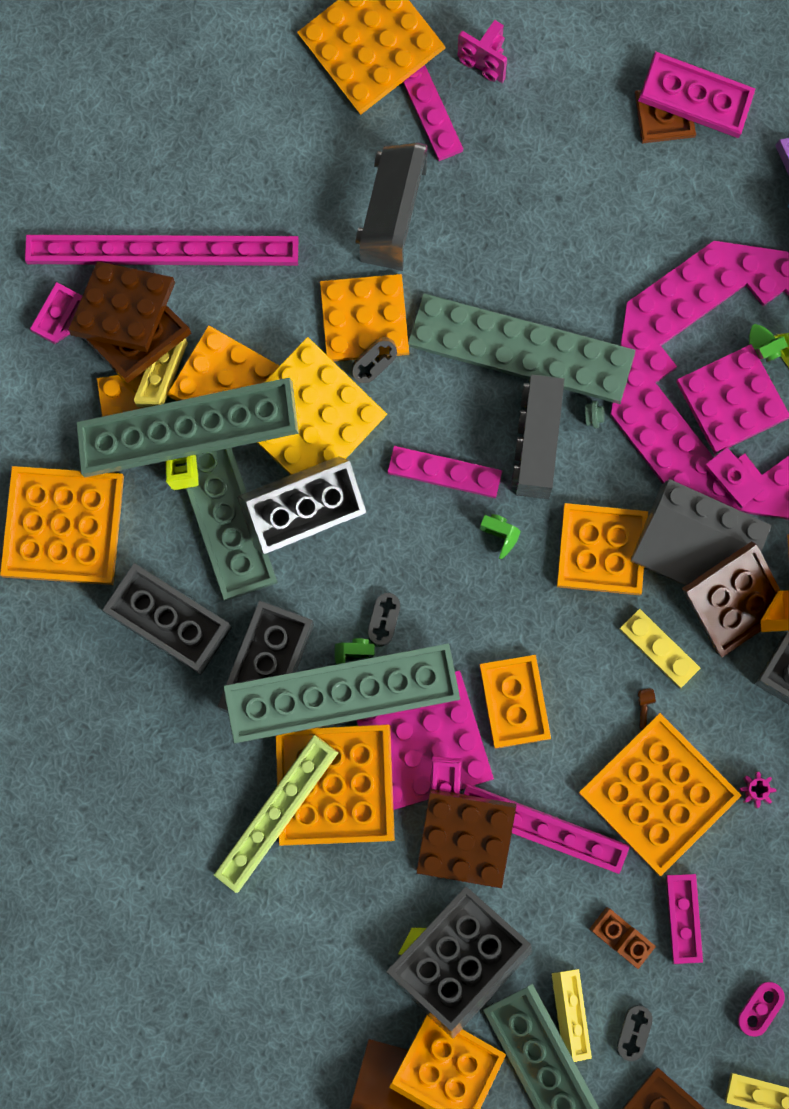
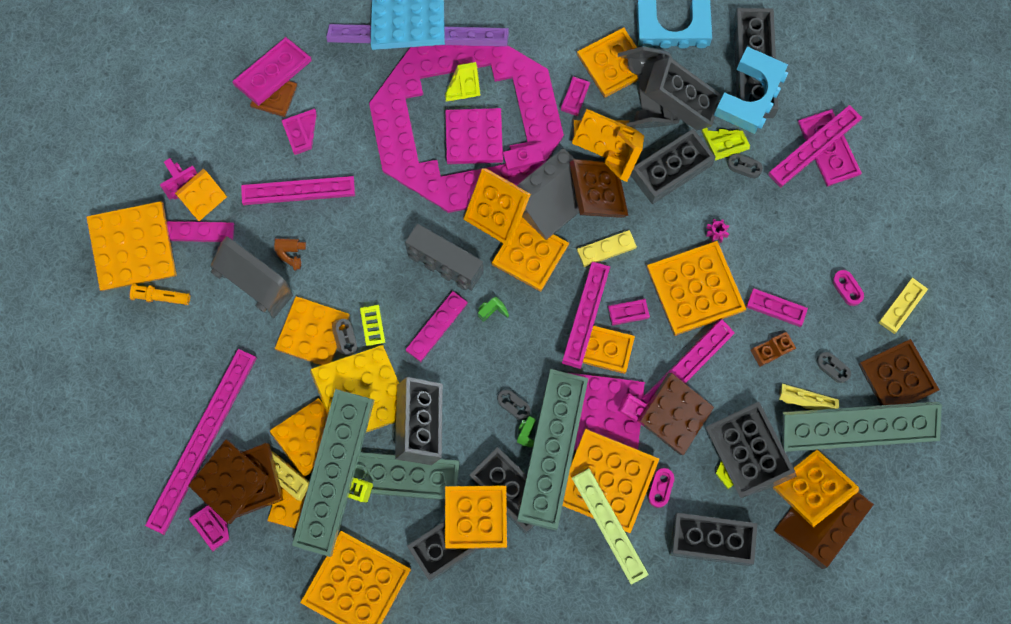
camera: 70 degrees left, 5 degrees down
(205, 632) = (475, 517): none -> light orange plate
(317, 959) = (713, 539): none -> dark grey brick
(321, 97) = (150, 293): none -> light orange pin
(358, 861) = (661, 488): none -> dark pink plate
(411, 374) = (367, 310): none -> neon yellow slope
(467, 236) = (289, 245): none -> dark orange plant
(478, 89) = (201, 195): none -> light orange plate
(521, 348) = (379, 245): sand green plate -> none
(546, 209) = (298, 190): none -> dark pink plate
(548, 659) = (586, 315): none -> dark pink plate
(582, 716) = (628, 312): none -> dark pink plate
(594, 414) = (444, 220): sand green plate -> none
(630, 172) = (301, 131): none -> dark pink wing
(641, 473) = (496, 206): none -> light orange plate
(646, 697) = (633, 268): reddish brown hand -> none
(765, 343) = (450, 102): bright green plate -> none

